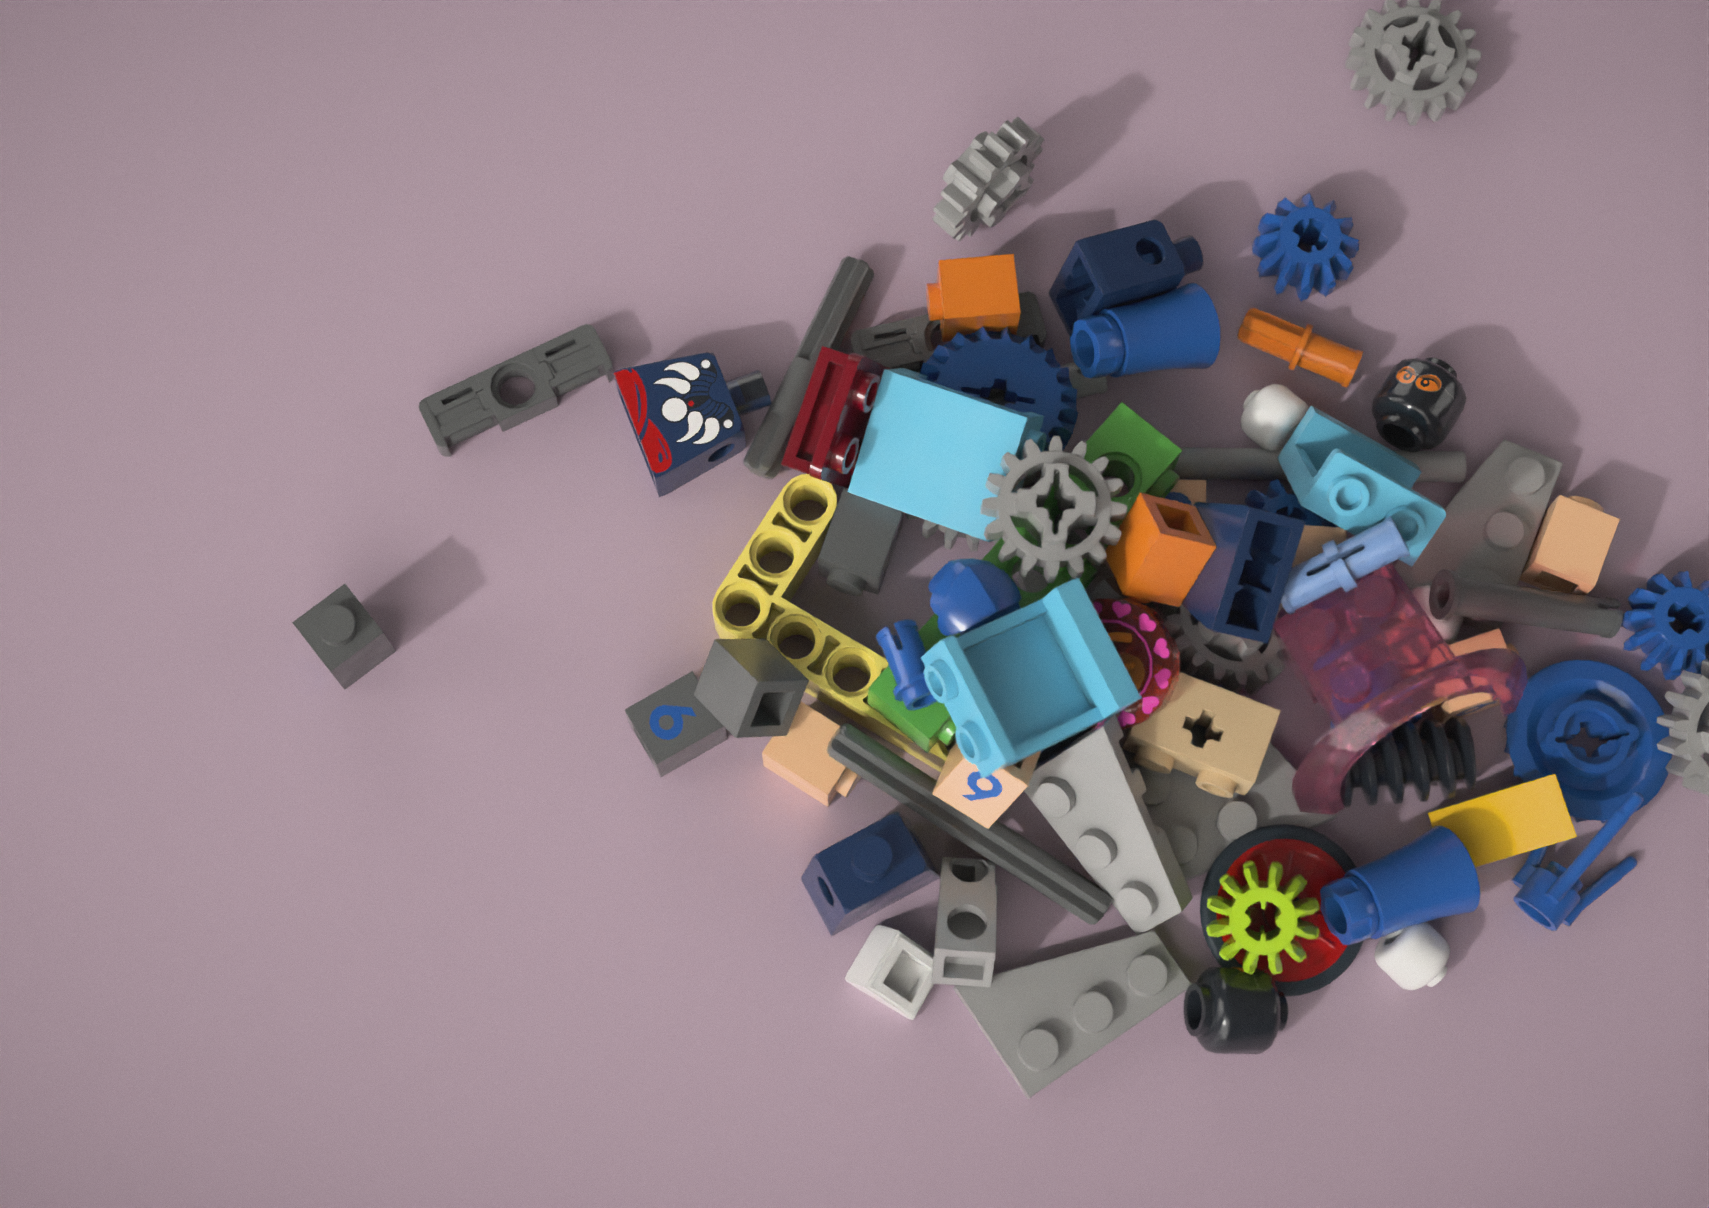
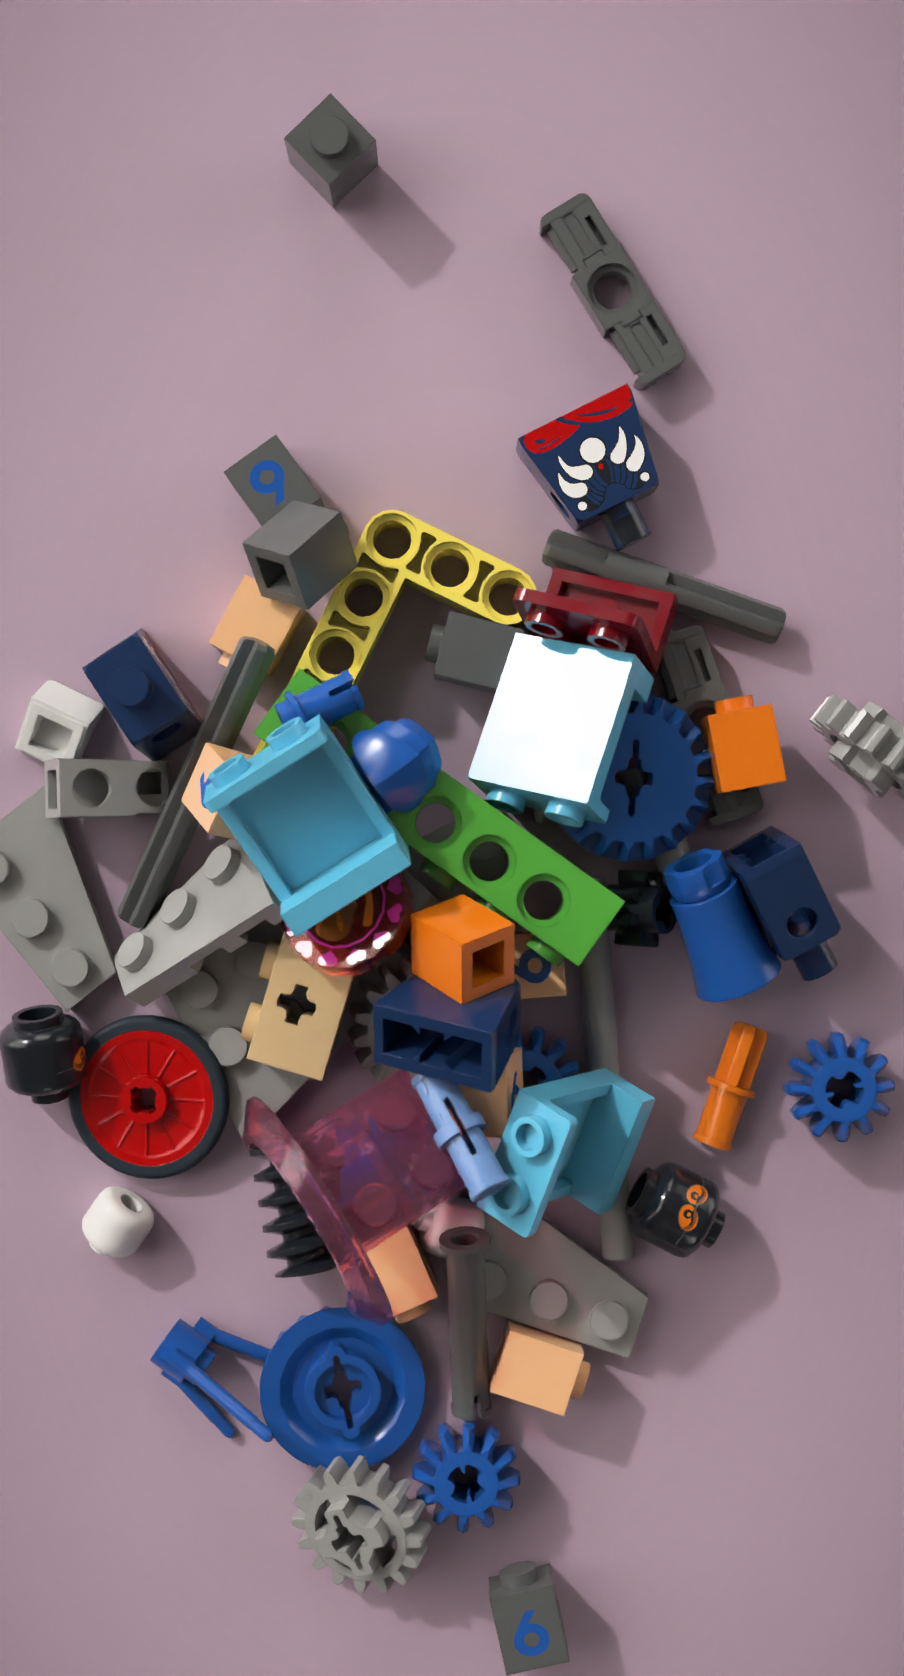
camera: 85 degrees right, 15 degrees up
(1027, 510) = (492, 869): light grey gear -> none
(1126, 389) = (644, 911): none -> black gear
(1272, 416) = (651, 1062): white piece -> none
(1285, 917) = (103, 1075): lime gear -> none
(1402, 889) = (168, 1208): blue plant -> none
(1509, 820) = (247, 1305): yellow tile -> none

